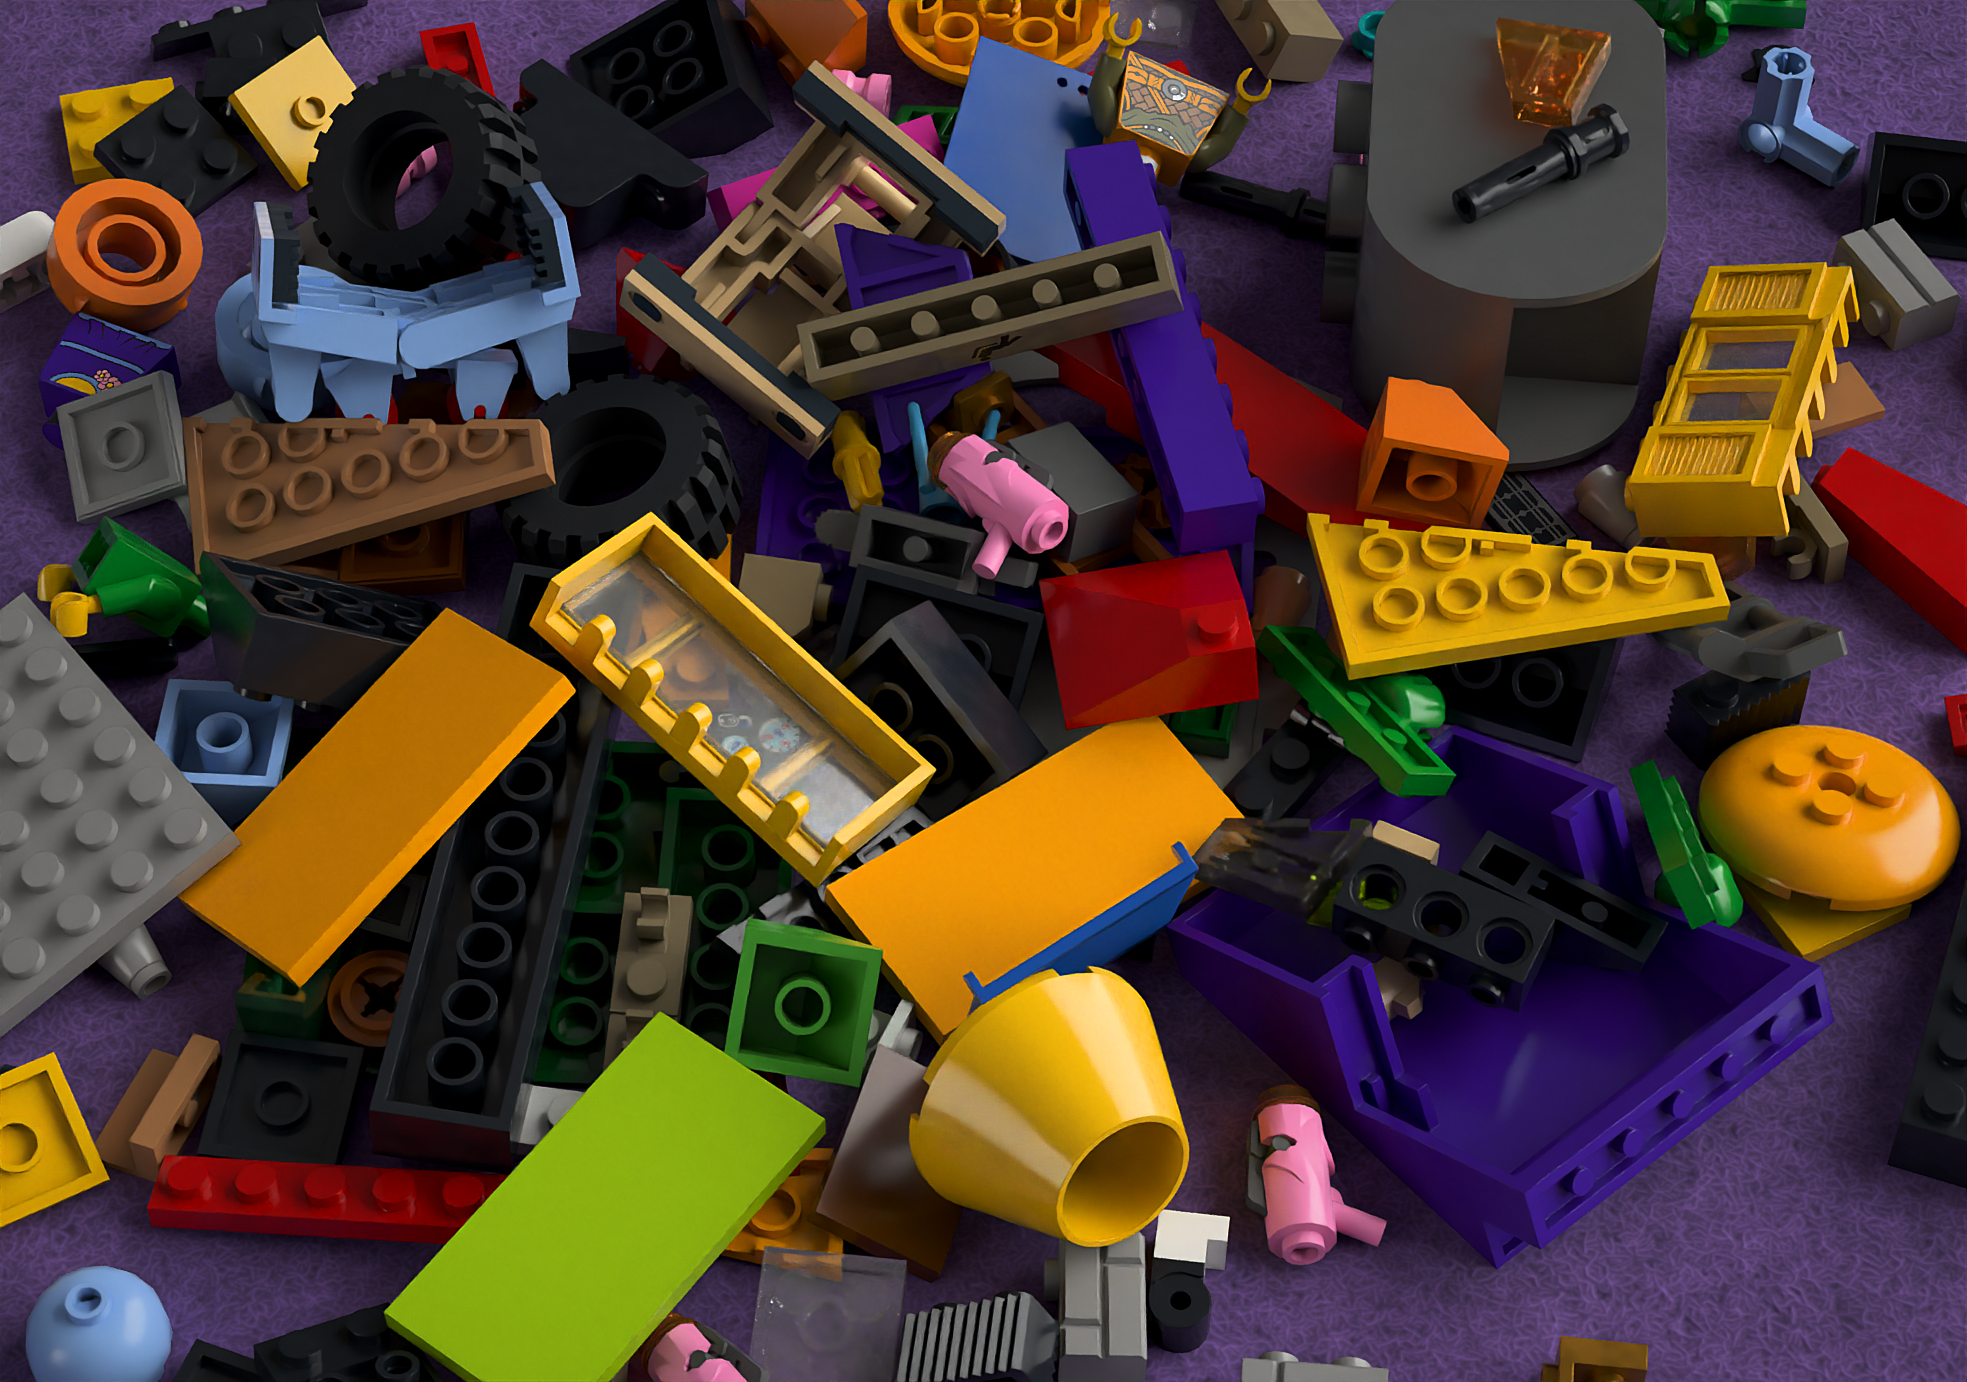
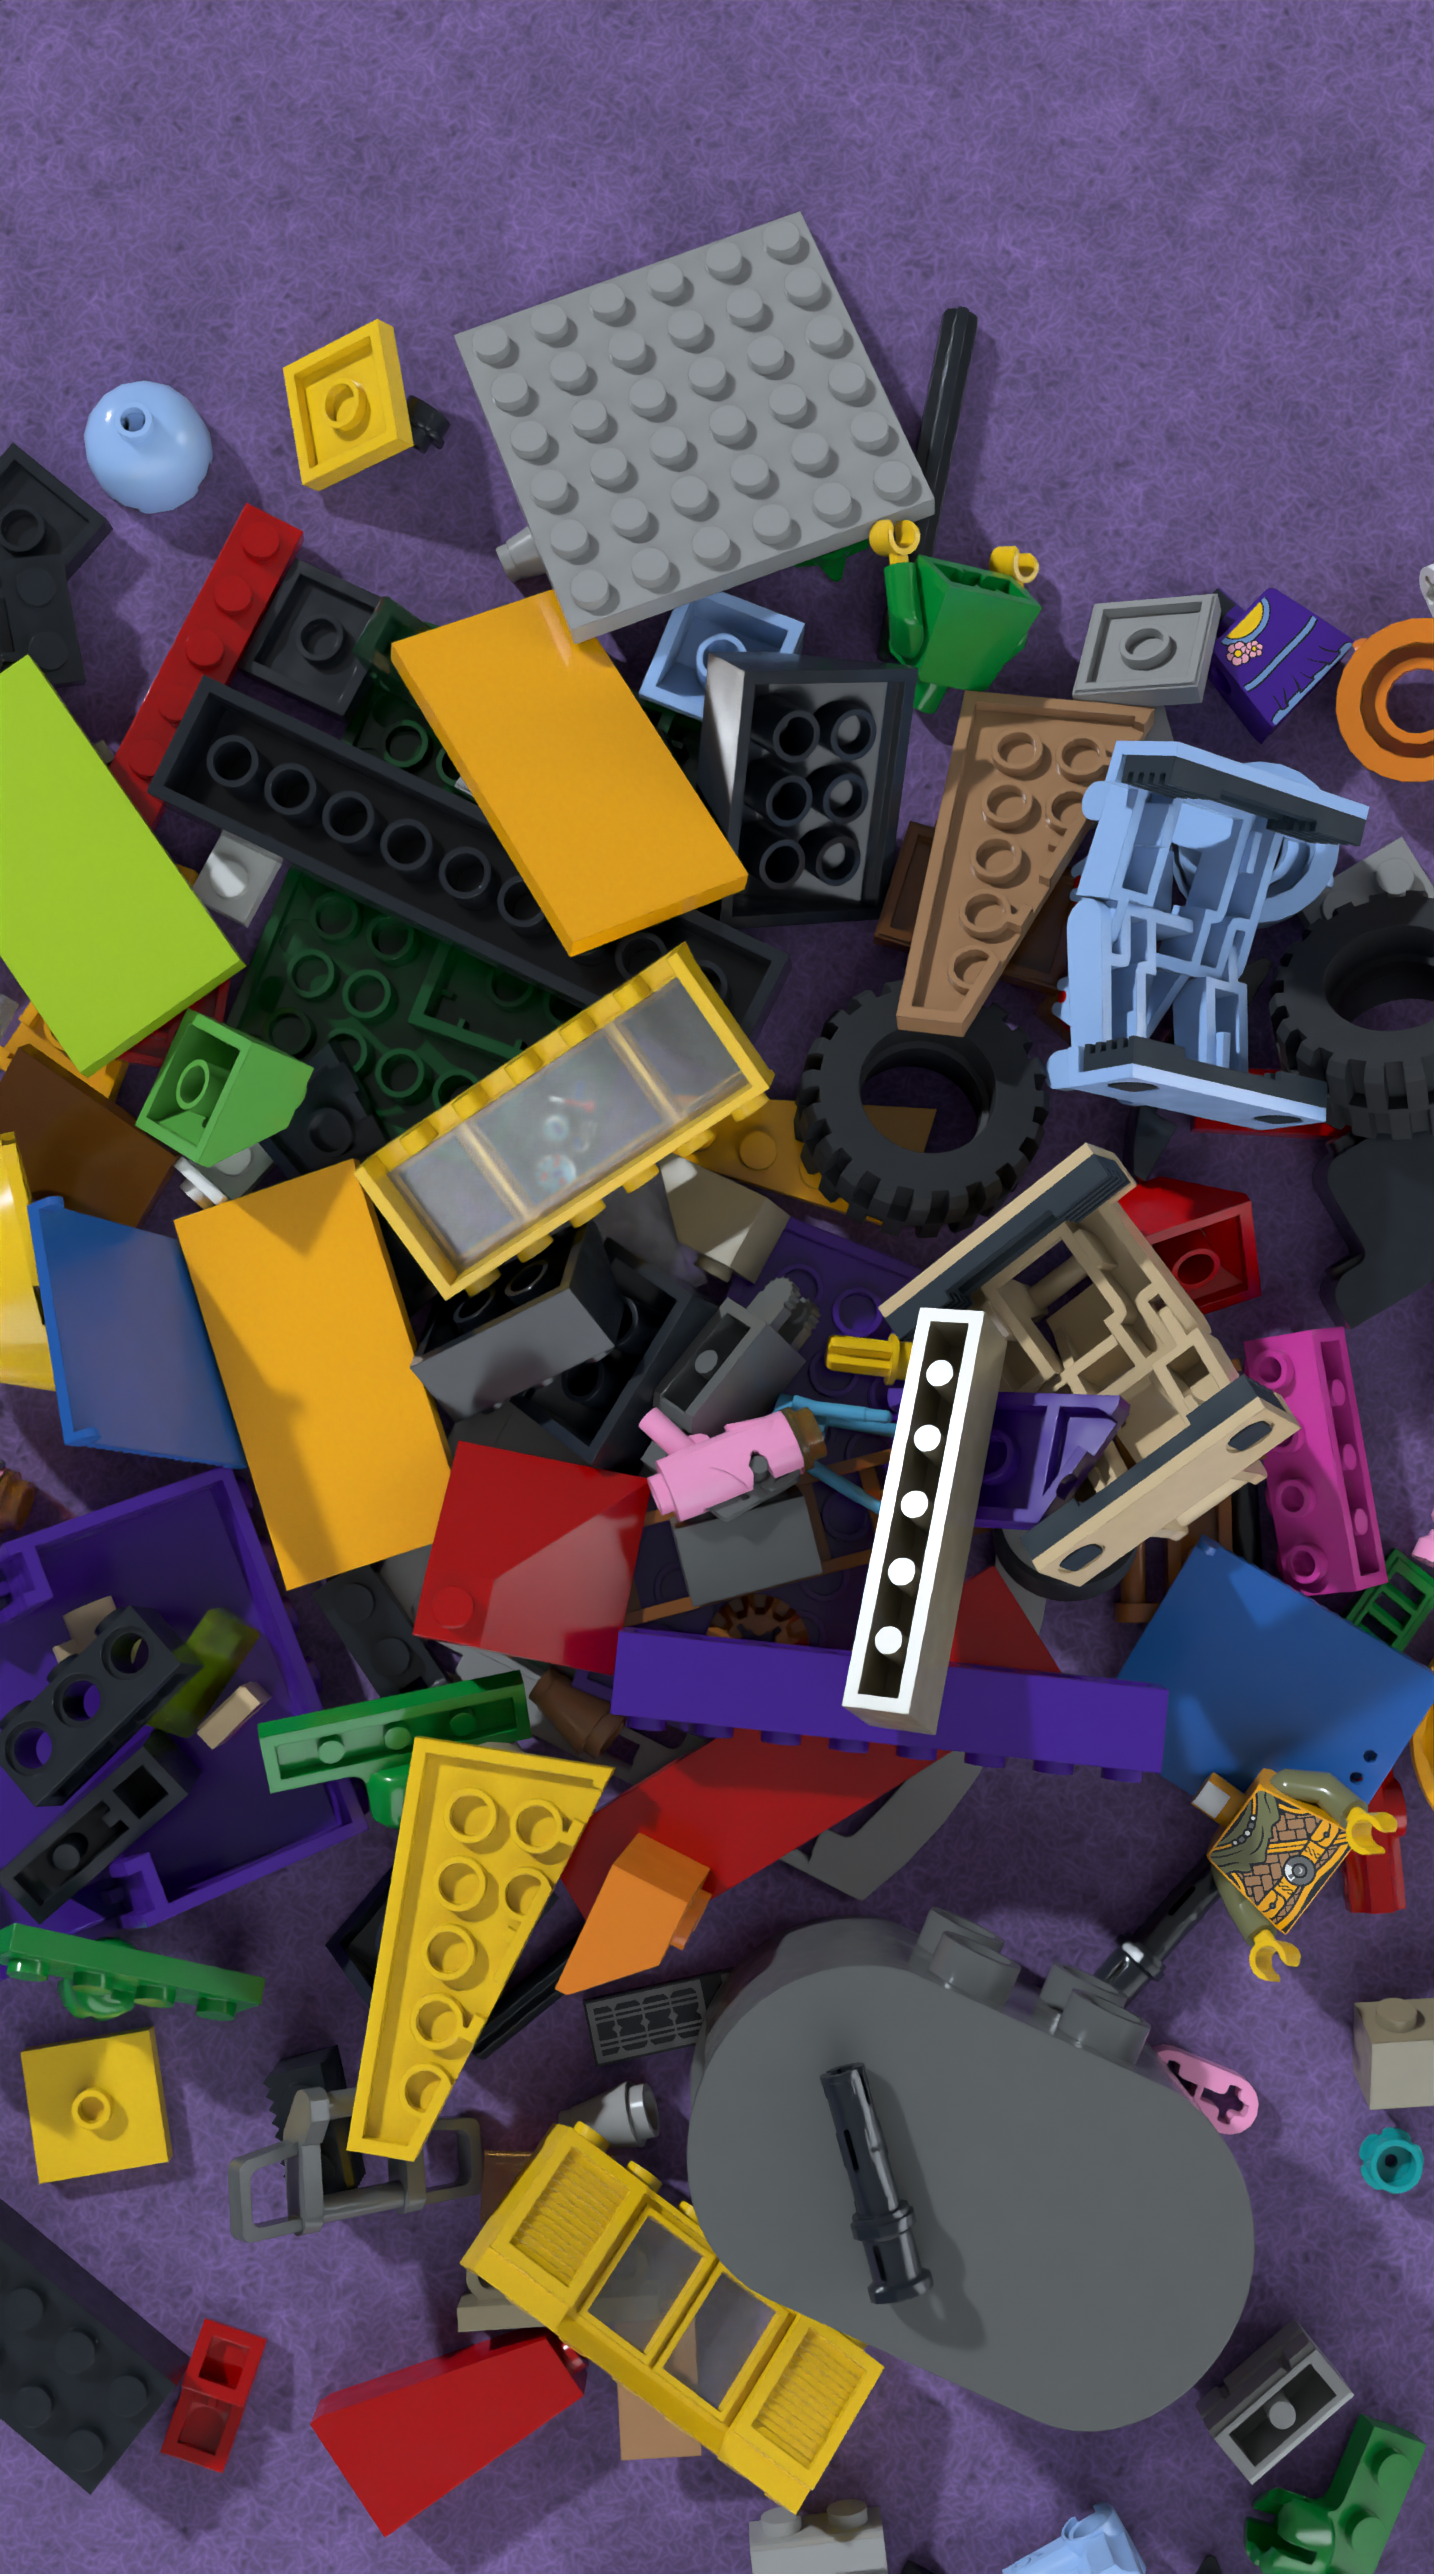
camera: 110 degrees right, 35 degrees up
(161, 1108) = (365, 540): medium nougat panel -> none
(350, 1005) = (406, 721): dark orange gear -> none
(648, 964) = (332, 982): dark tan plate -> none
(1280, 861) = (232, 1589): clear smoke wing -> none
(1550, 69) = (1025, 2261): clear orange wing -> none
(1829, 817) = (137, 2091): light orange brick -> none

